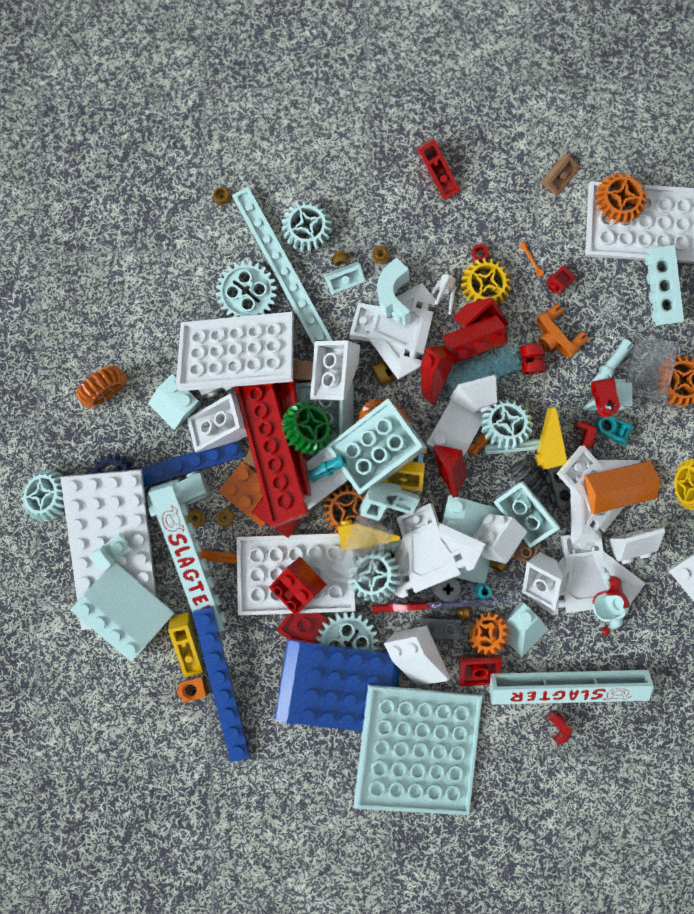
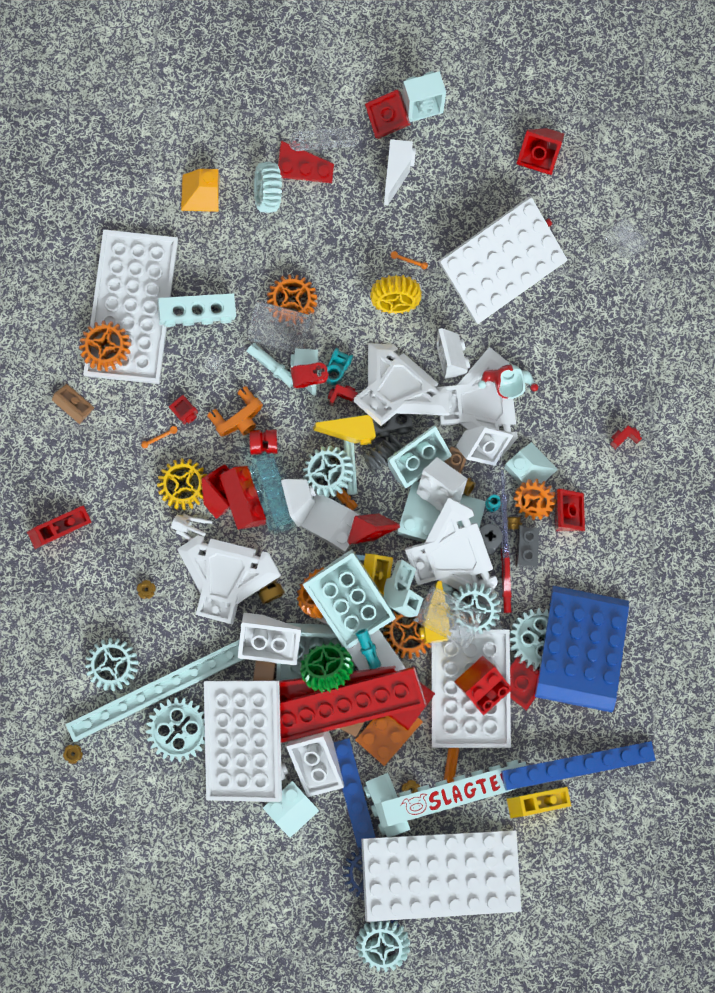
camera: 90 degrees left, 5 degrees down
(101, 386) = (271, 883): orange gear -> none
(110, 552) = (444, 873): light aqua slope -> none
(122, 611) = (503, 863): light aqua slope -> none
(200, 684) = (583, 787): orange brick -> none
(225, 522) = (416, 759): pearl gold plate -> none
(340, 256) = (146, 631): pearl gold plate -> none
(344, 278) = (167, 627): light aqua slope -> none
(389, 281) = (175, 580): light aqua arch -> none
(417, 656) = (554, 569): white slope -> none
(418, 750) = (645, 573): light aqua tile -> none
(434, 371) = (273, 538): red slope -> none
(477, 247) = (149, 483): red bush -> none
(570, 687) = (587, 425): light aqua brick -> none
(622, 486) = (395, 363): orange slope -> none

